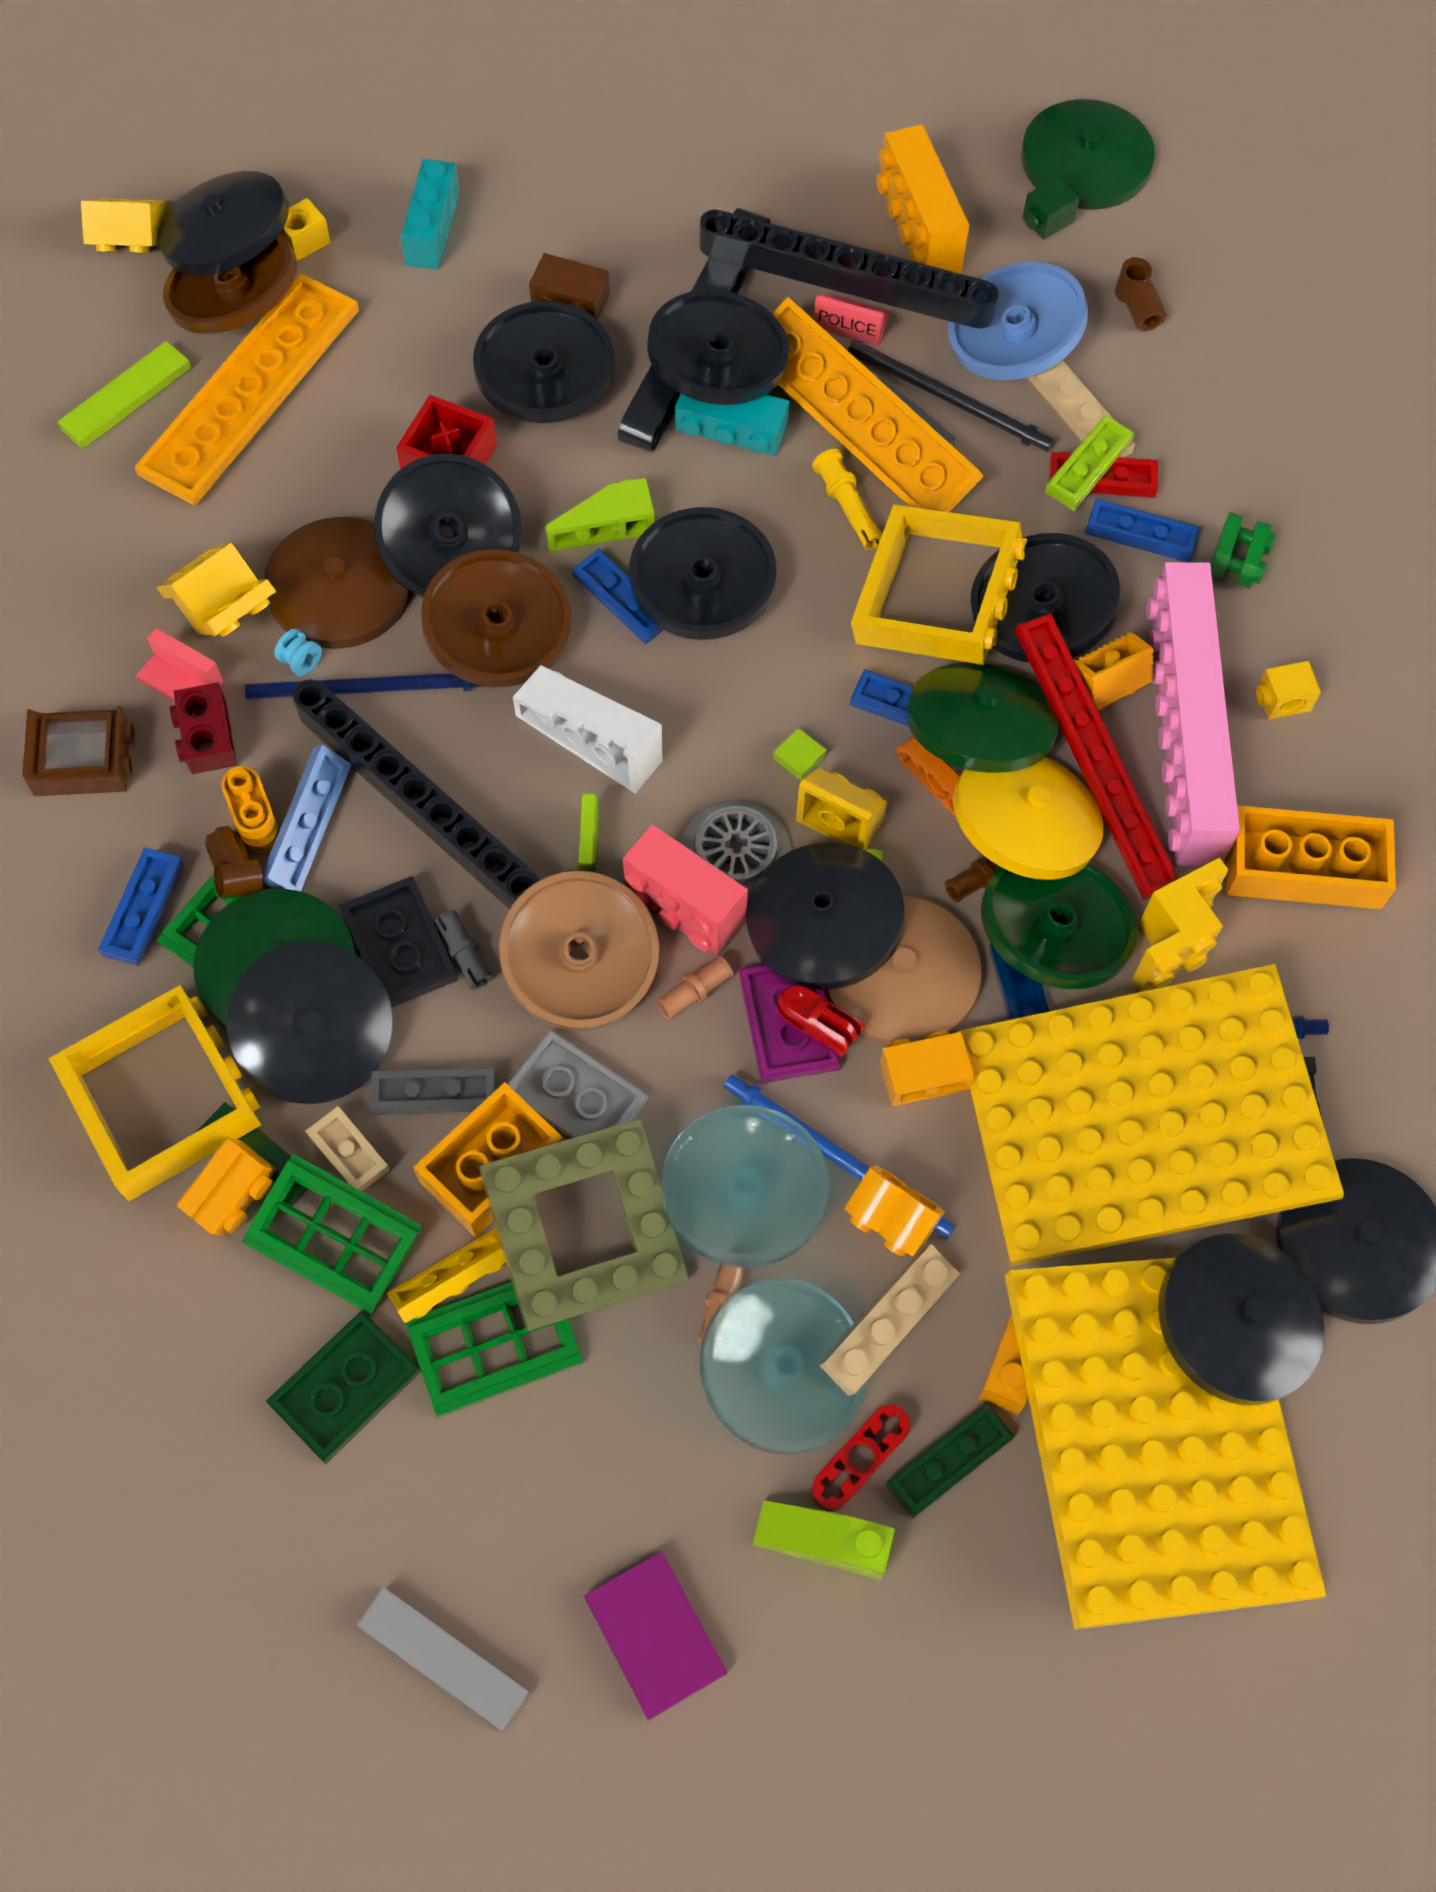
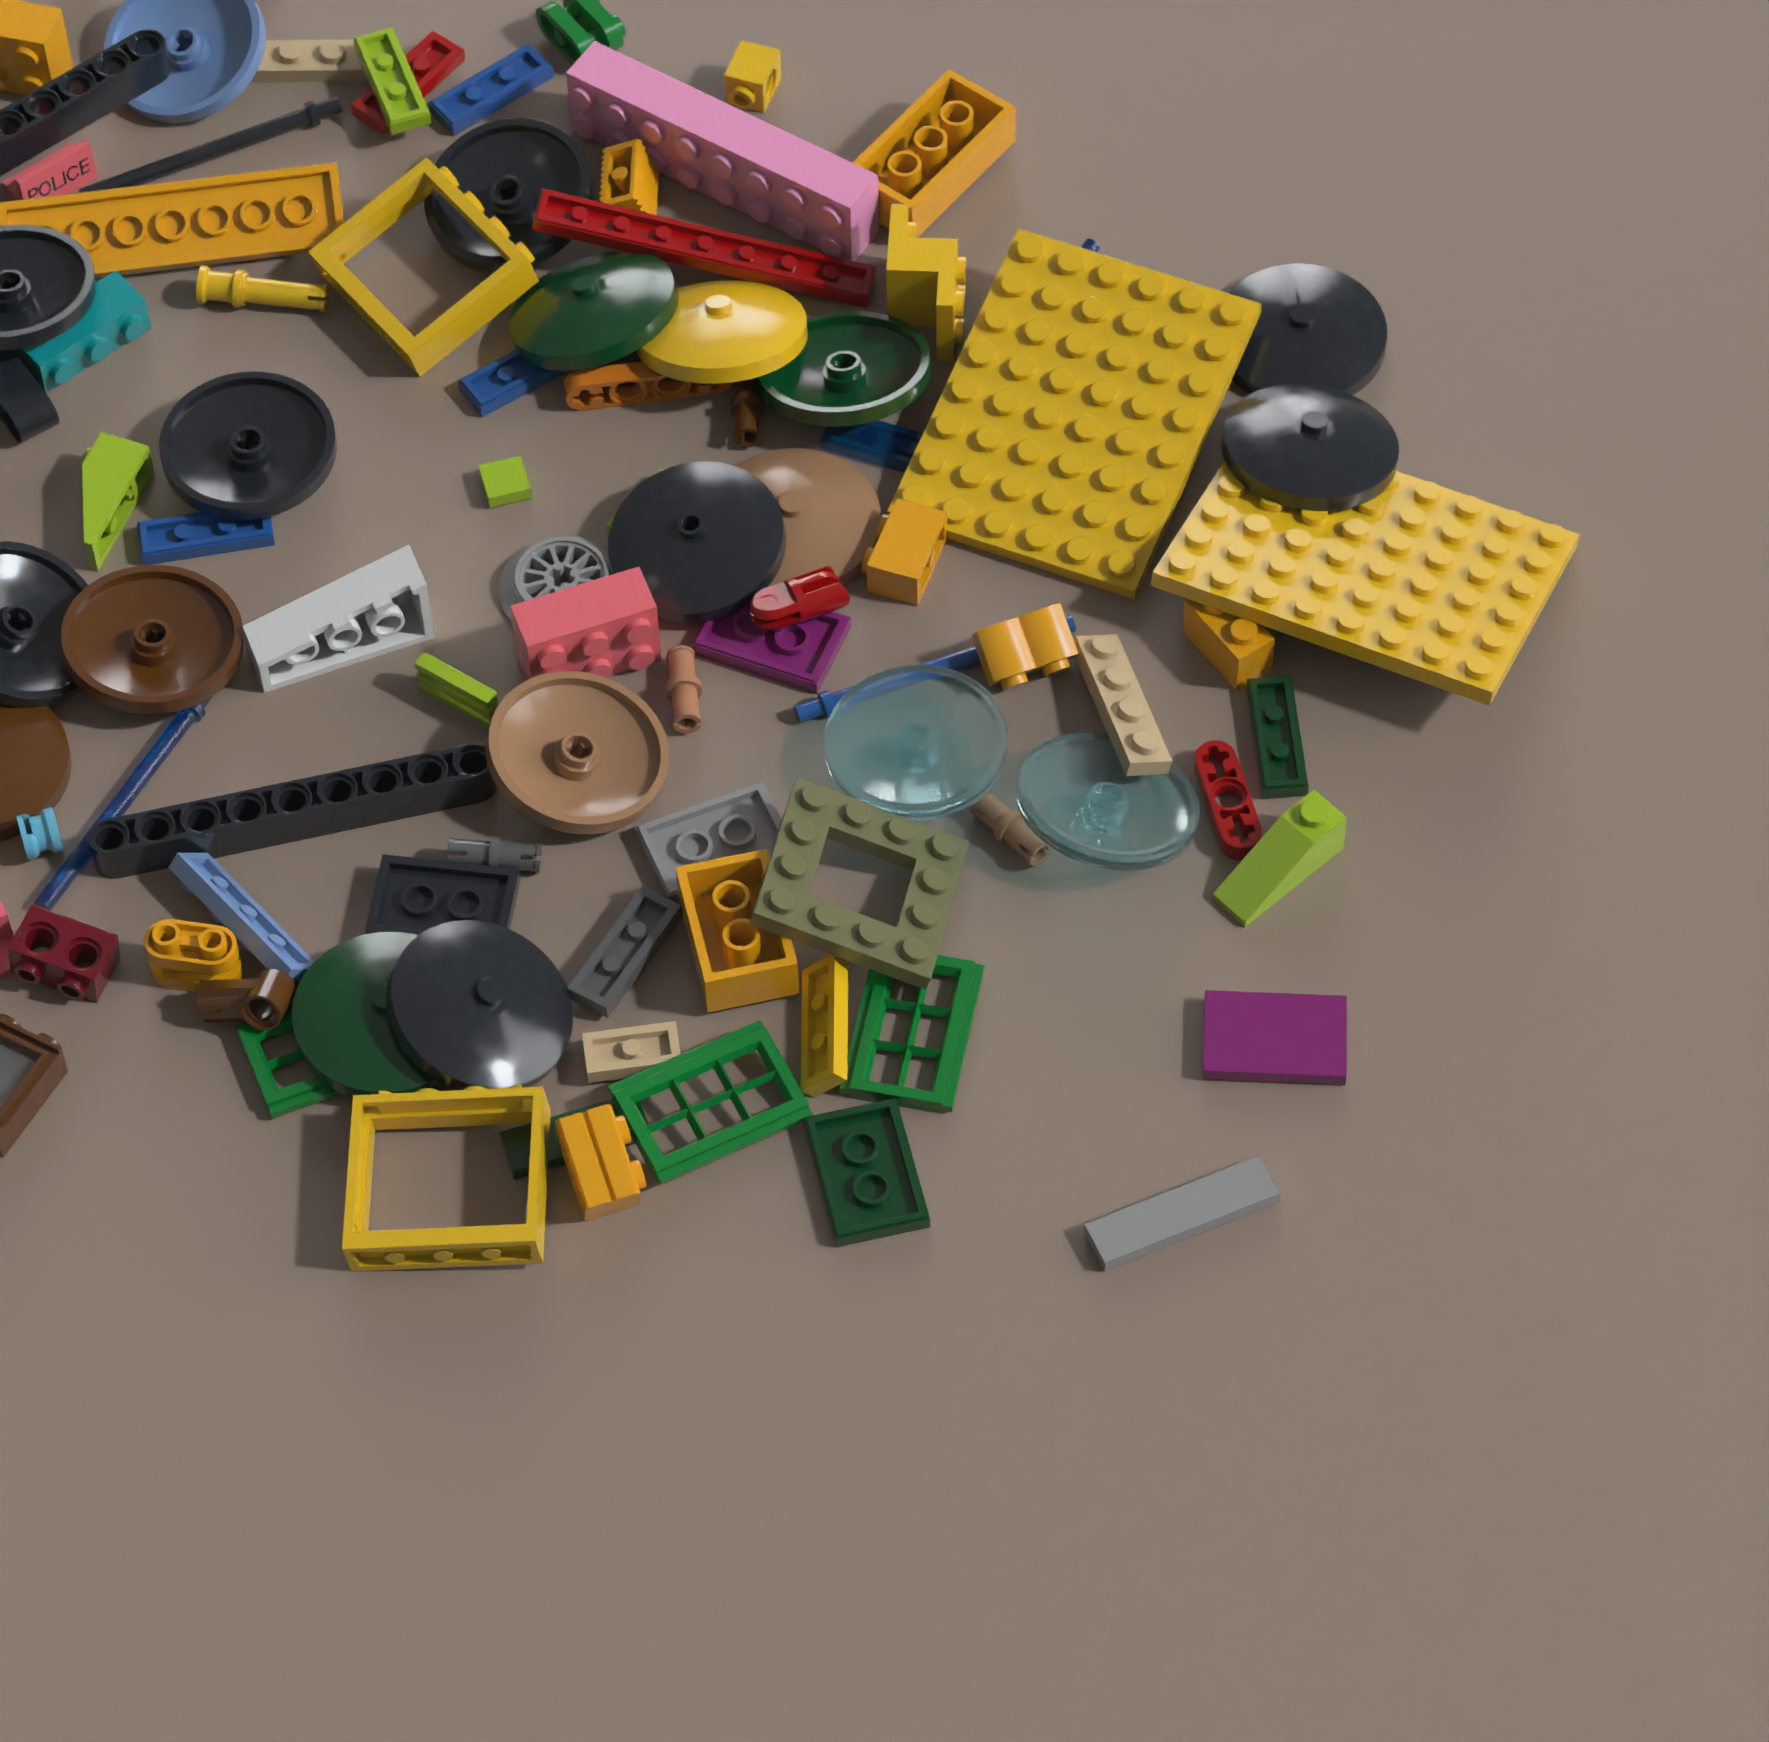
camera: 55 degrees left, 10 degrees down
(141, 906) = (222, 1107): blue plate -> none
(839, 808) = (596, 474): yellow slope -> none

